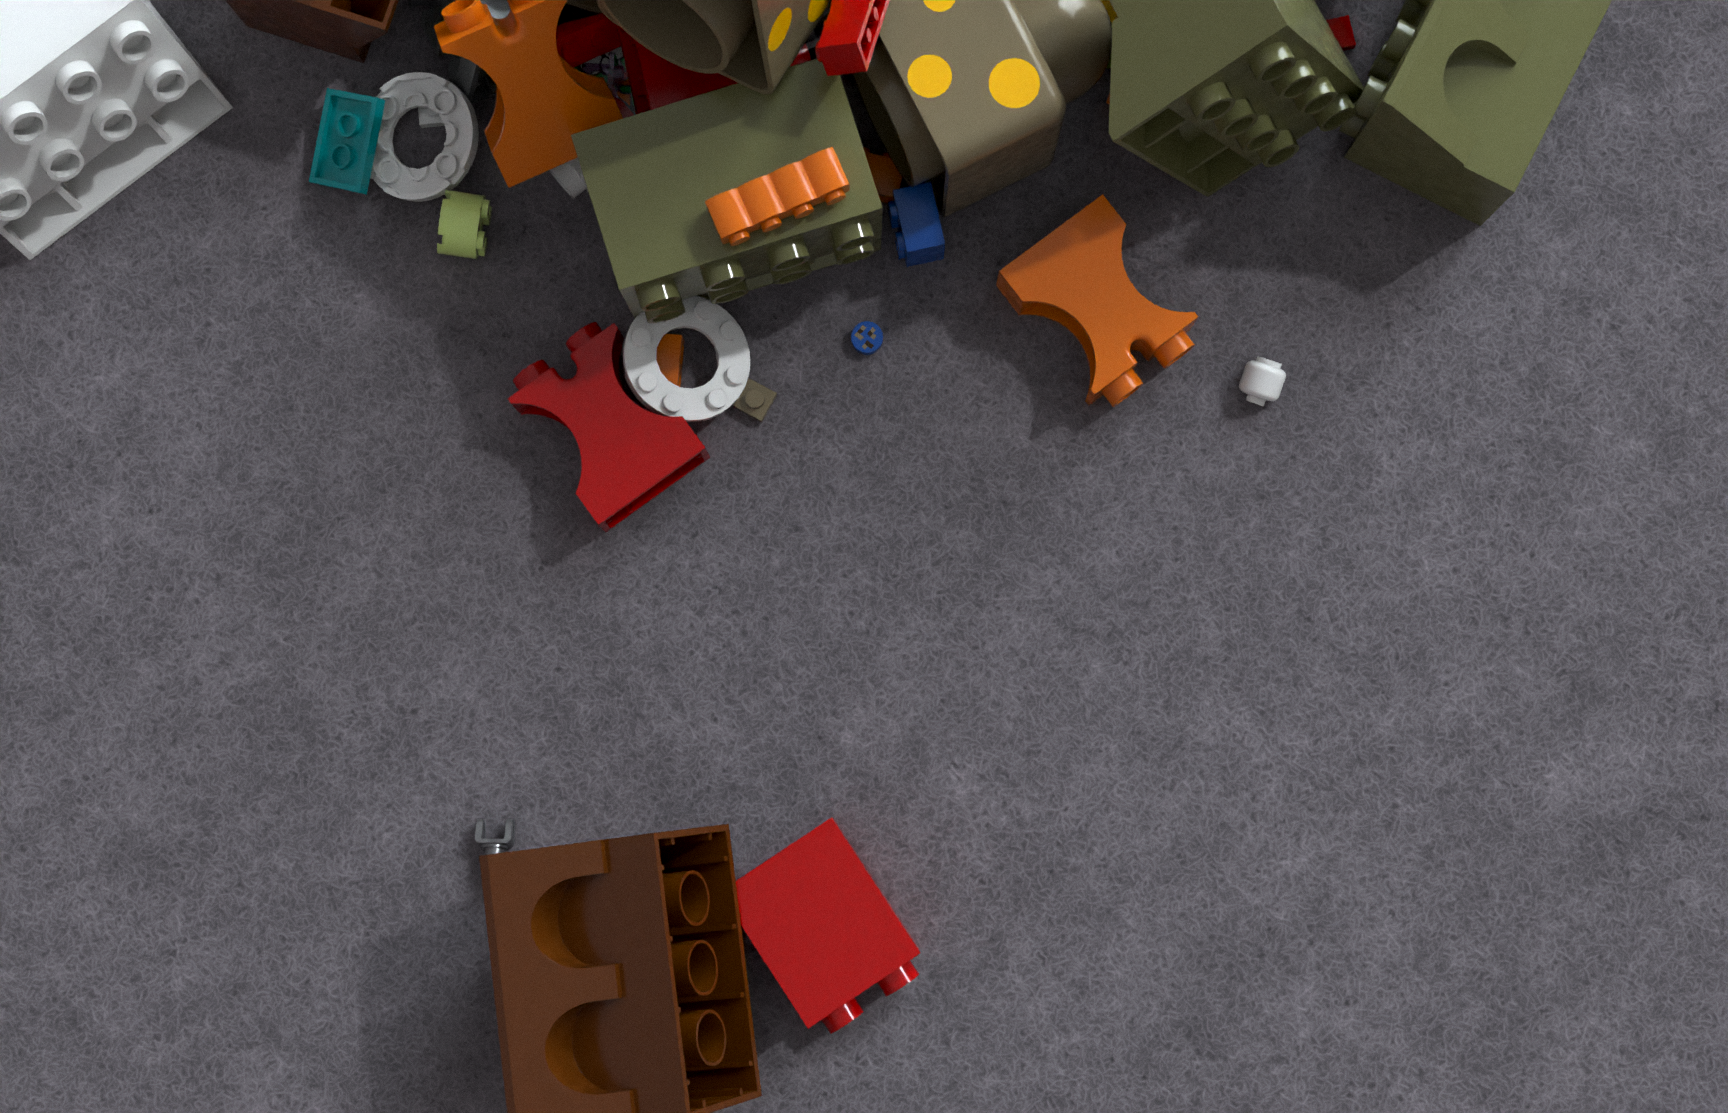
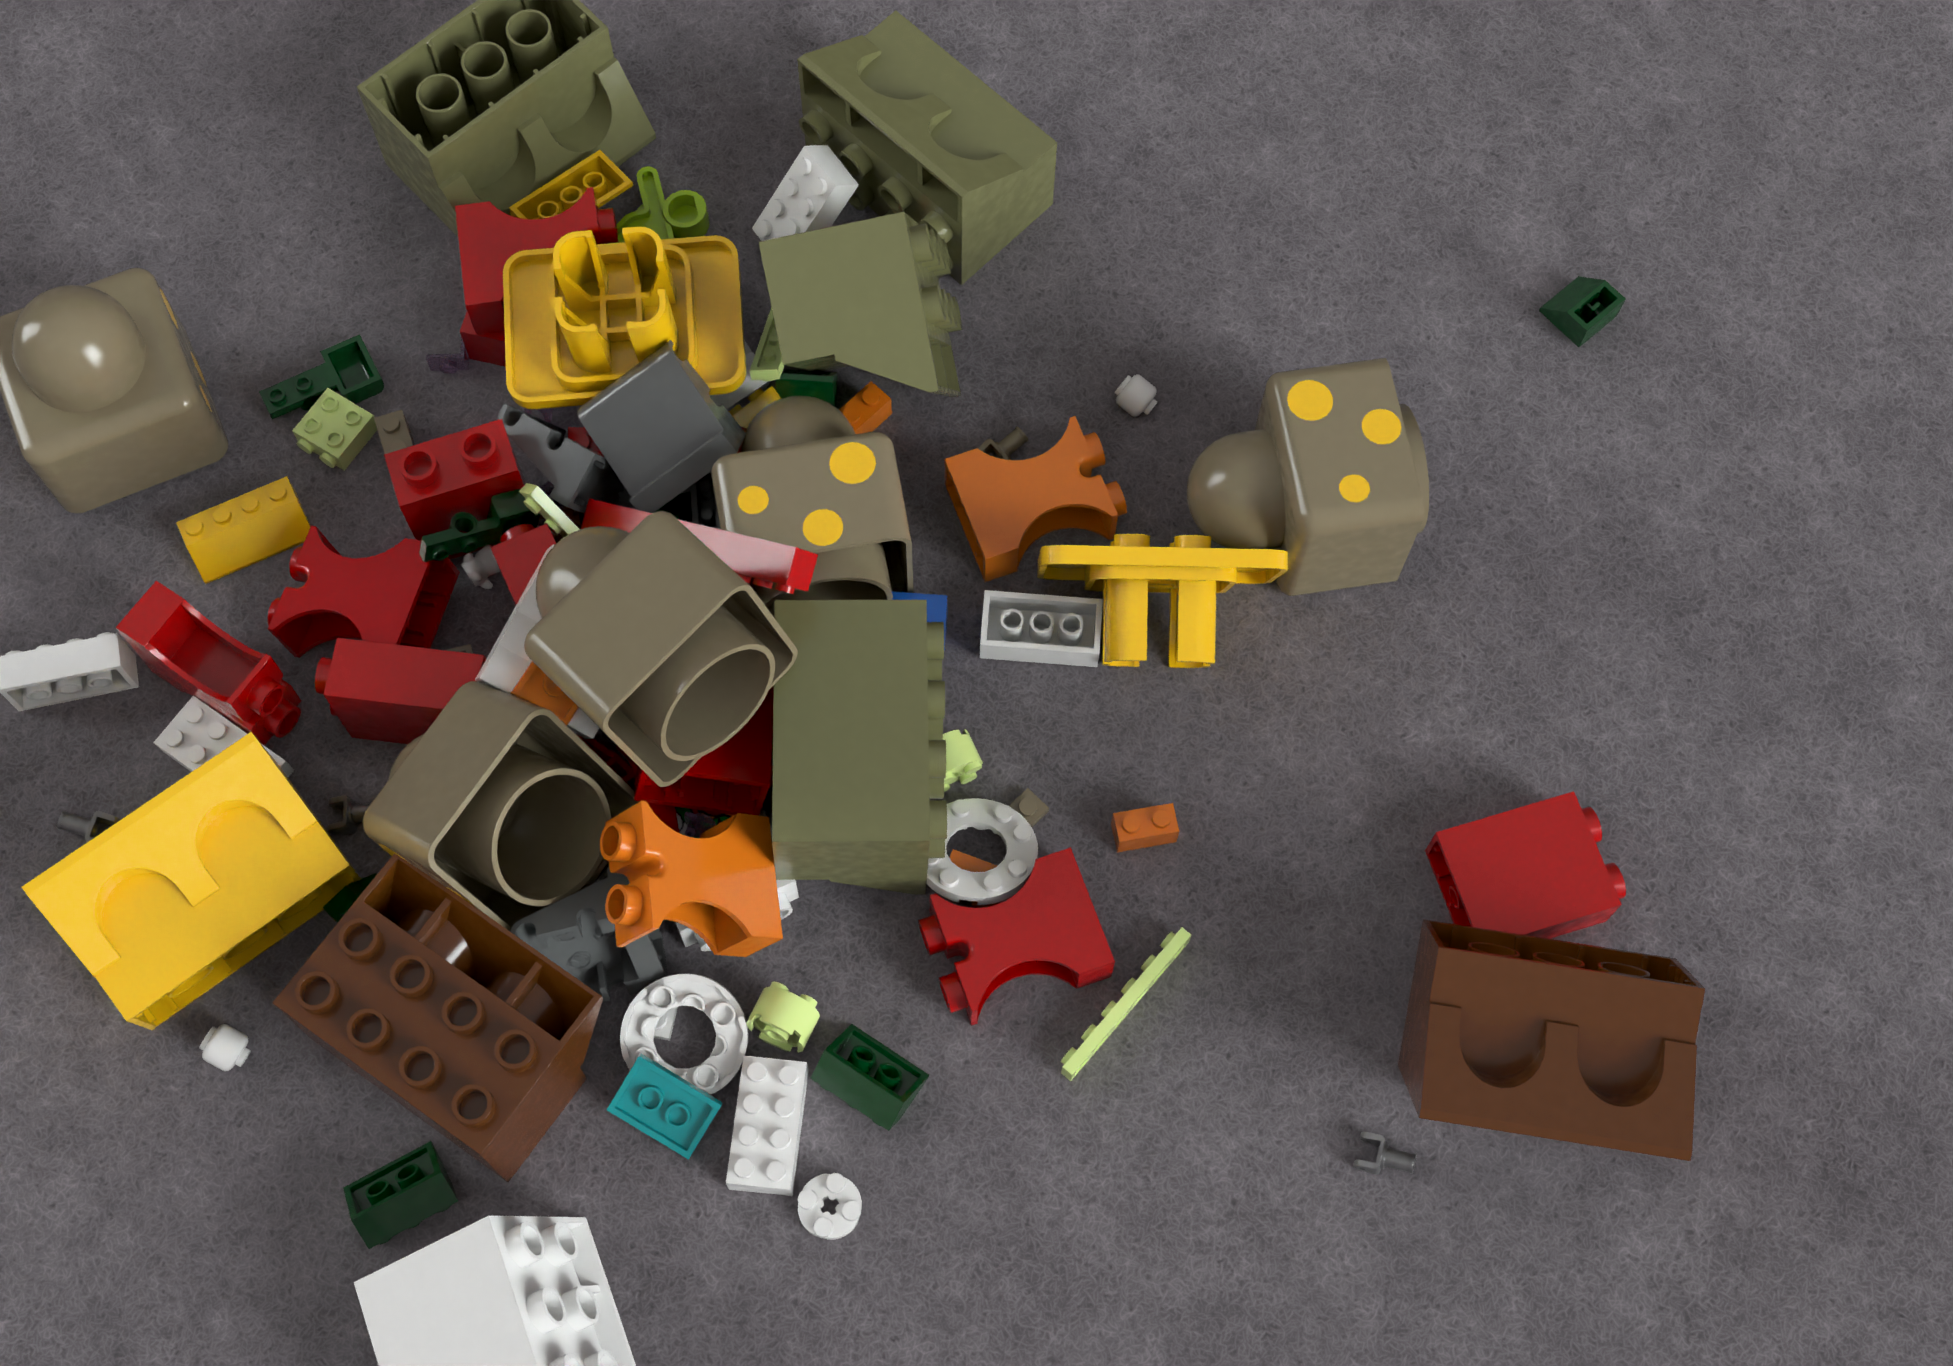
camera: 80 degrees left, 15 degrees down
(302, 346) = (812, 1200): none -> white plate
(357, 244) = (767, 1126): none -> white brick
(435, 325) = (869, 1076): none -> dark green slope
(566, 546) = (1116, 1012): none -> yellowish green plate
(765, 521) = (1145, 827): none -> orange brick
(777, 305) = (961, 758): none -> yellowish green brick
(778, 195) = (892, 677): orange brick -> none
(867, 338) = (999, 699): blue tile -> none
(952, 355) = (1041, 628): none -> white brick
(1026, 432) = (1184, 569): none -> yellow piece
(1151, 258) = (1007, 445): none -> dark tan piece
(1188, 592) = (1323, 475): none -> dark tan piece
(1535, 848) = (1583, 308): none -> dark green slope

